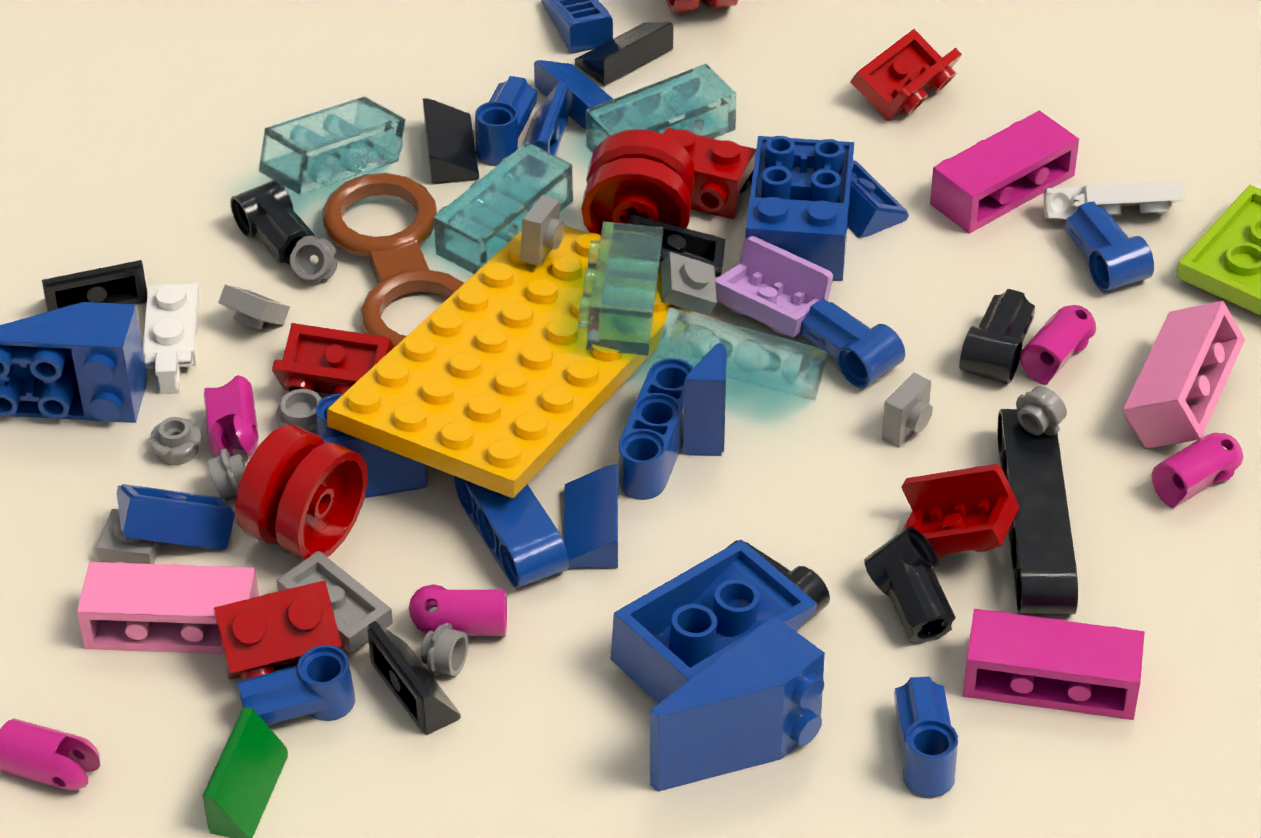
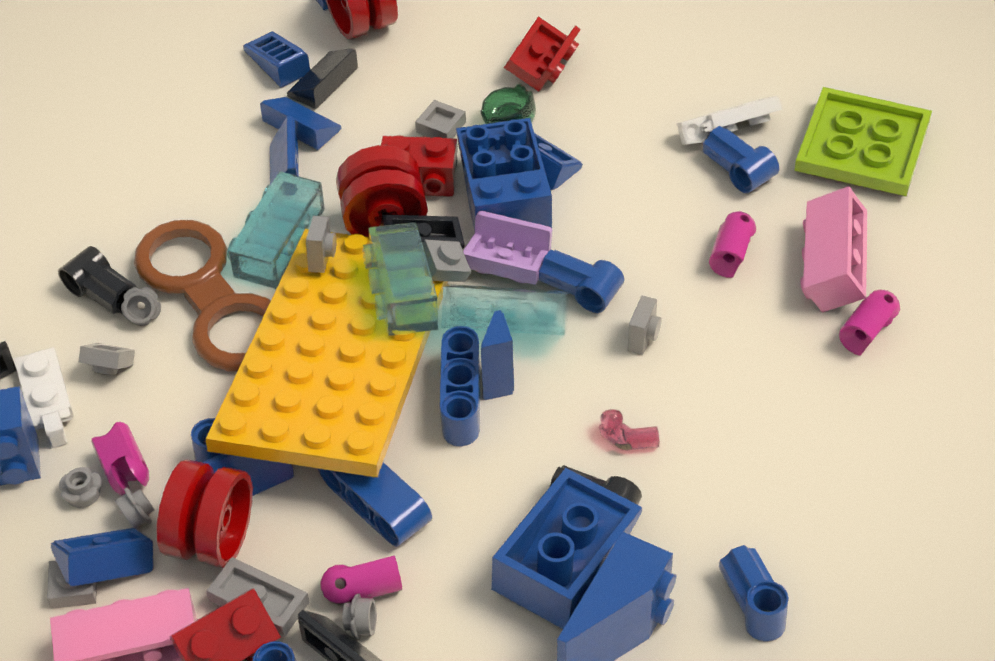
camera: 15 degrees left, 5 degrees up
(299, 409) = (174, 439): light grey plate -> none
(327, 358) = (185, 390): red bracket -> none
(331, 145) = (125, 207): clear light blue brick -> none
(449, 143) = (213, 183): black slope -> none
(503, 119) = (251, 156): blue piece -> none
(592, 519) = (436, 472): blue slope -> none
(687, 101) = (386, 112): clear light blue brick -> none
(746, 124) = (440, 120): none -> light grey plate
(837, 531) = (625, 437): none -> clear pink arm
(840, 123) = (508, 105): none -> clear green hair
(906, 574) = (692, 461): black piece -> none
(962, 508) = (714, 403): red bracket -> none
(997, 343) = (687, 252): black piece -> none
(1004, 171) = (642, 115): dark pink brick -> none
(1040, 411) = (749, 306): light grey plate -> none
(1041, 529) = (768, 385): black beam -> none
(1054, 664) = (827, 507): dark pink brick -> none

